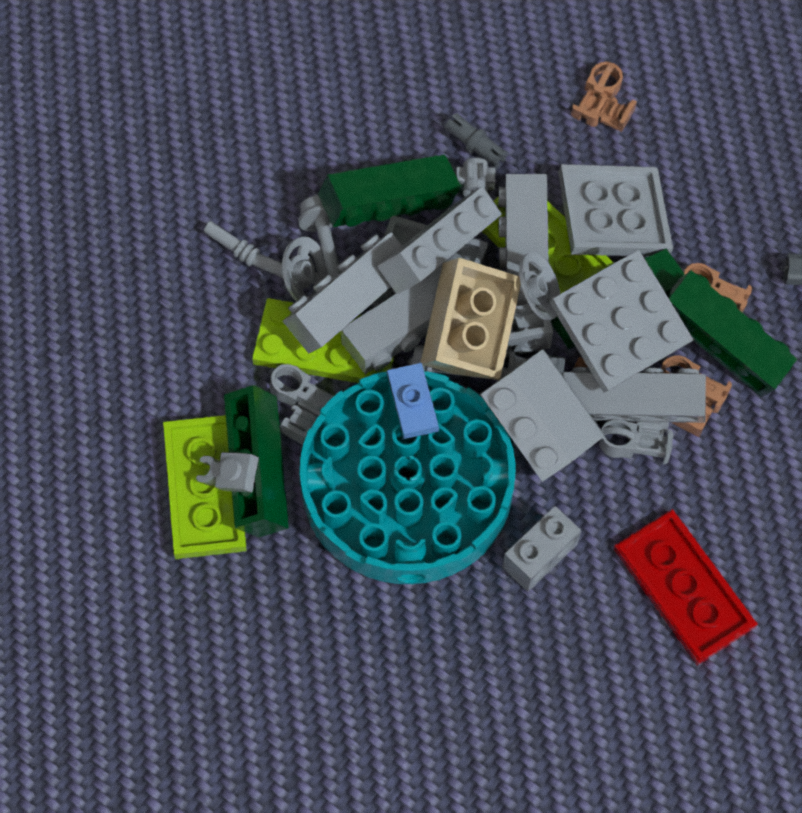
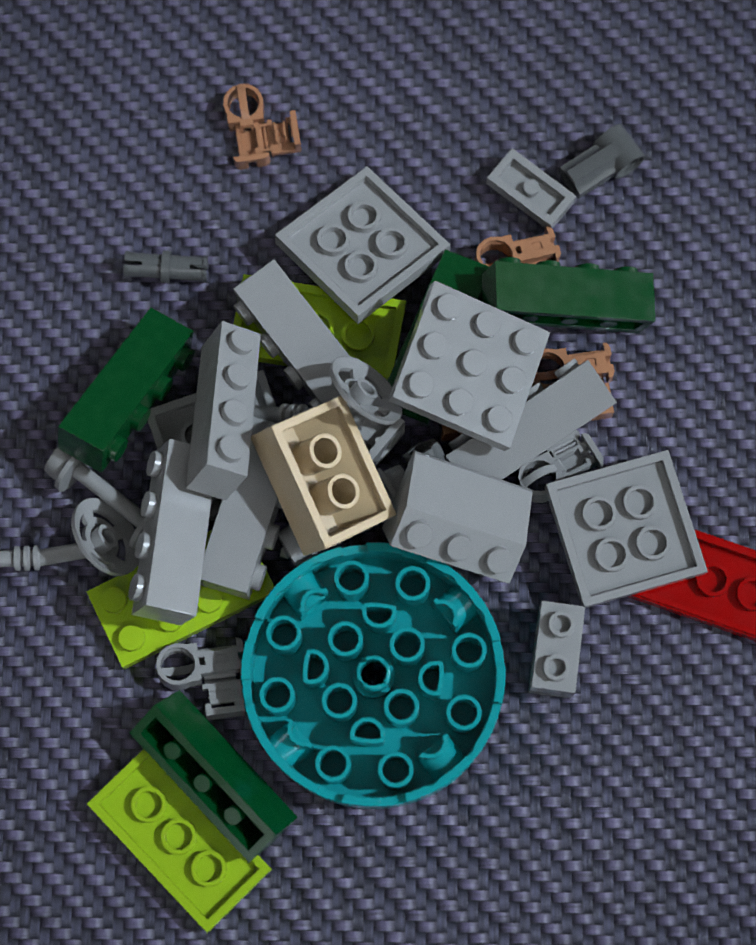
camera: 35 degrees left, 10 degrees up
(231, 473) = (202, 809): light grey plate -> none
(412, 400) = (326, 600): medium blue plate -> none
(475, 175) = (198, 308): light grey gear -> none
(649, 505) = (625, 529): none -> light grey plate
(757, 255) = (531, 189): none -> light grey plate

